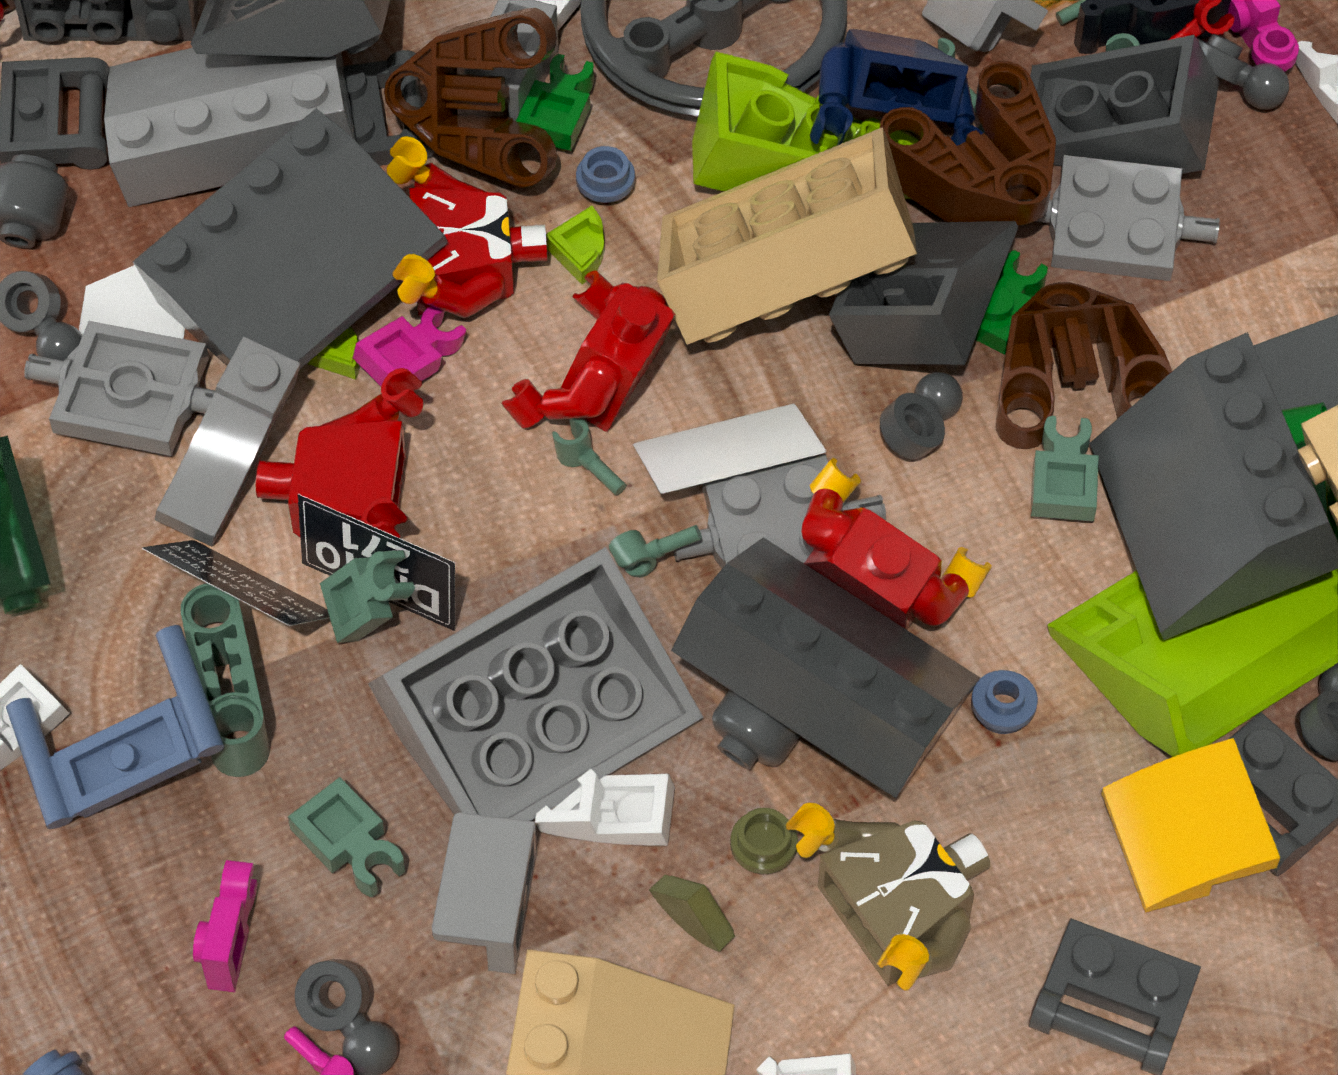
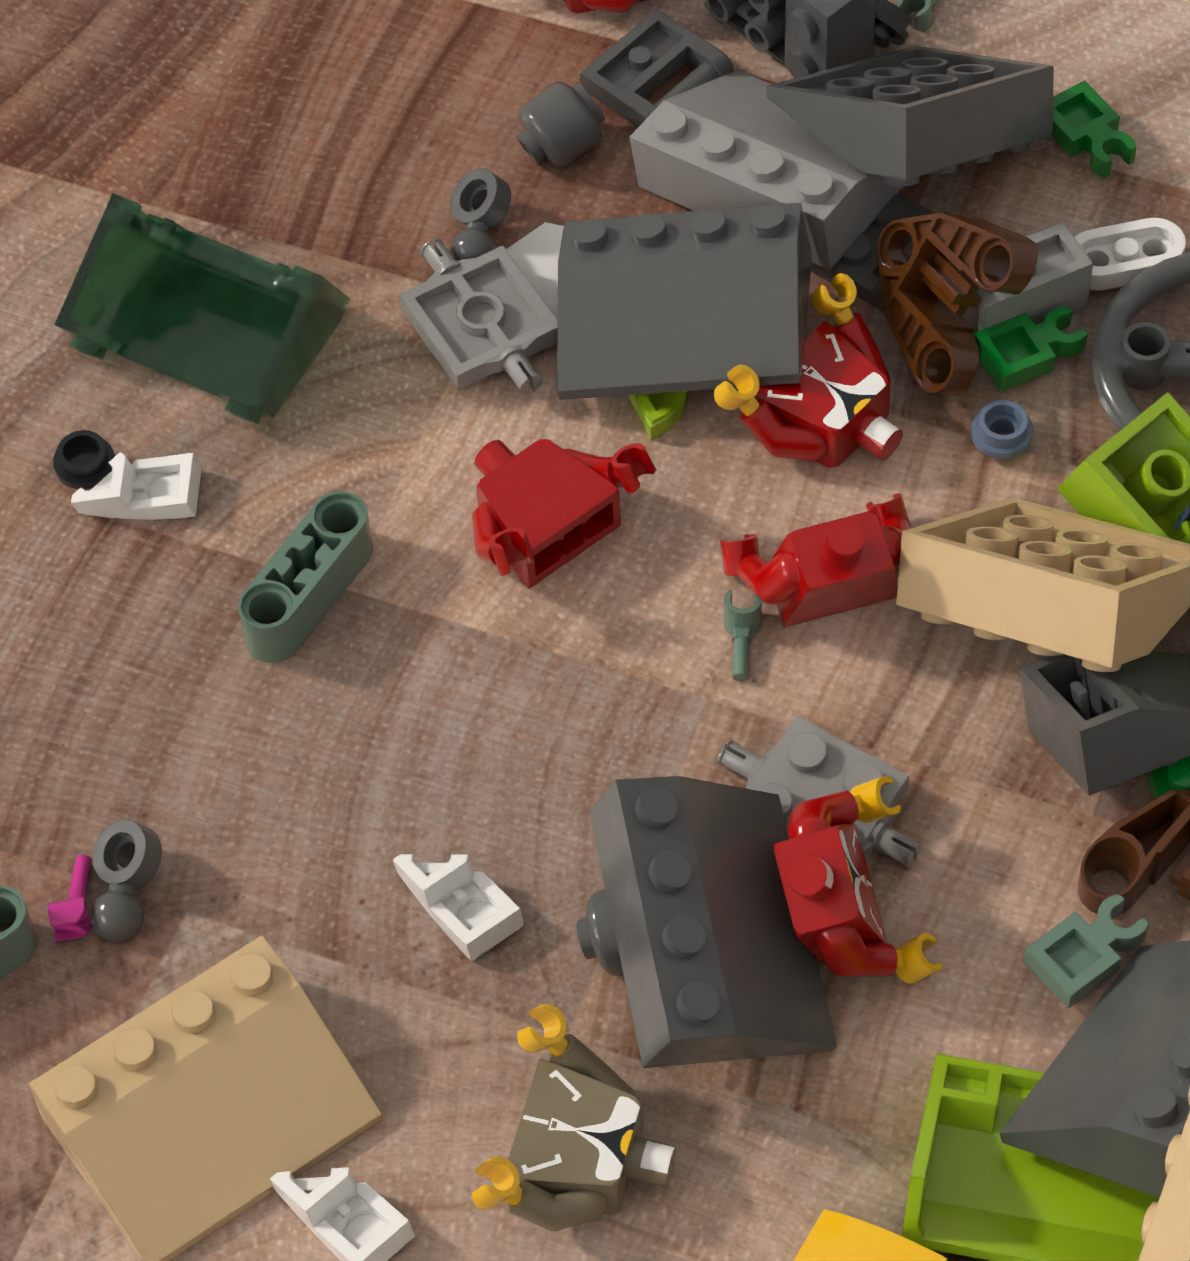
camera: 50 degrees right, 0 degrees up
(125, 755) = (184, 572): sand blue plate -> none
(223, 939) = (112, 750): dark pink plate -> none
(228, 441) = (497, 406): light grey slope -> none
(240, 582) = (388, 516): black sticker -> none
(335, 539) = (488, 579): black sticker -> none
(343, 830) = (260, 750): sand green plate -> none
(361, 593) = (454, 595): sand green plate -> none
(408, 346) = (693, 446): dark pink plate -> none
(487, 886) = (304, 875): light grey panel -> none
(538, 695) = (489, 771): light grey slope -> none
(578, 243) = (926, 468): lime tile -> none
(640, 557) = (691, 728): sand green hand -> none
(693, 910) = (425, 1021): olive tile -> none
(728, 448) = (847, 711): white sticker -> none
(763, 842) = (516, 1011): olive plate -> none
(916, 420) = (1057, 809): dark grey plate -> none
(1000, 716) = (829, 1096): sand blue plate -> none

